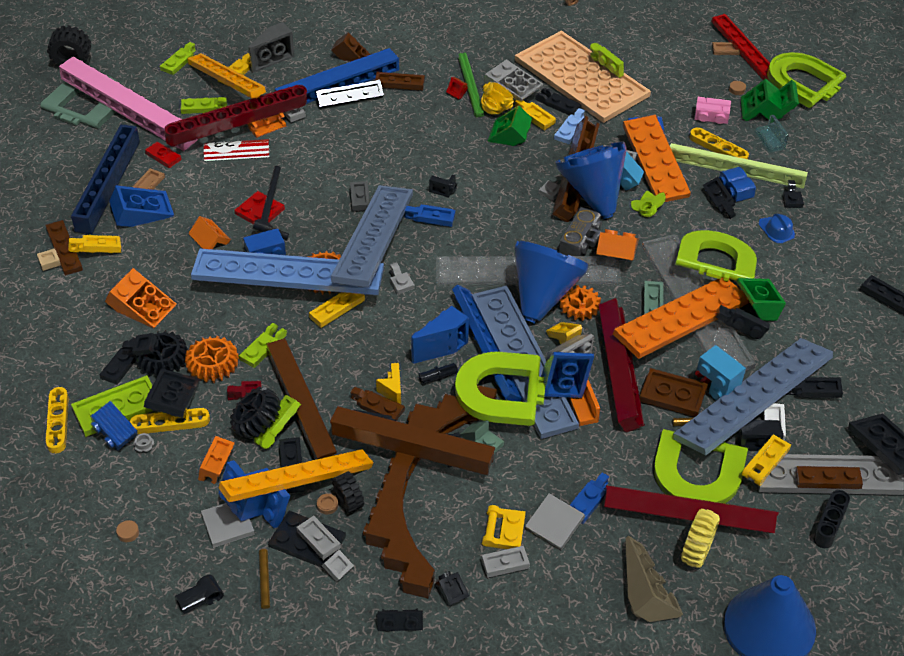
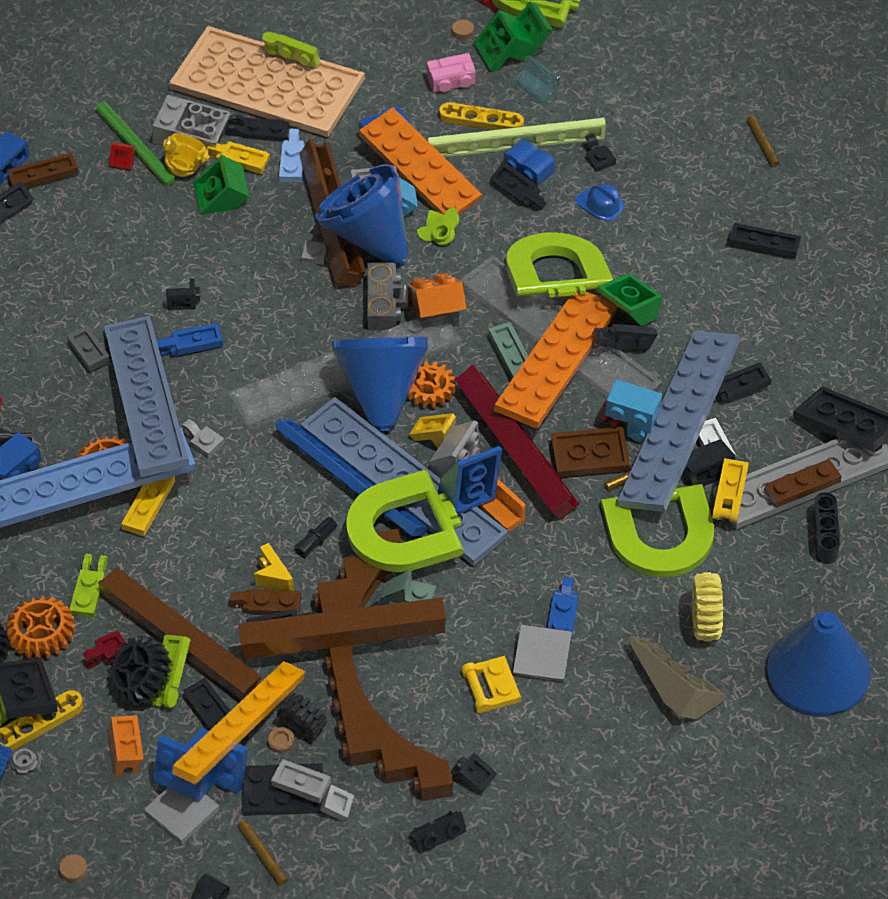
camera: 25 degrees left, 5 degrees up
(440, 336) = (299, 489): blue slope -> none
(505, 561) = (514, 720): light grey plate -> none
(687, 508) = (675, 578): dark red tile -> none

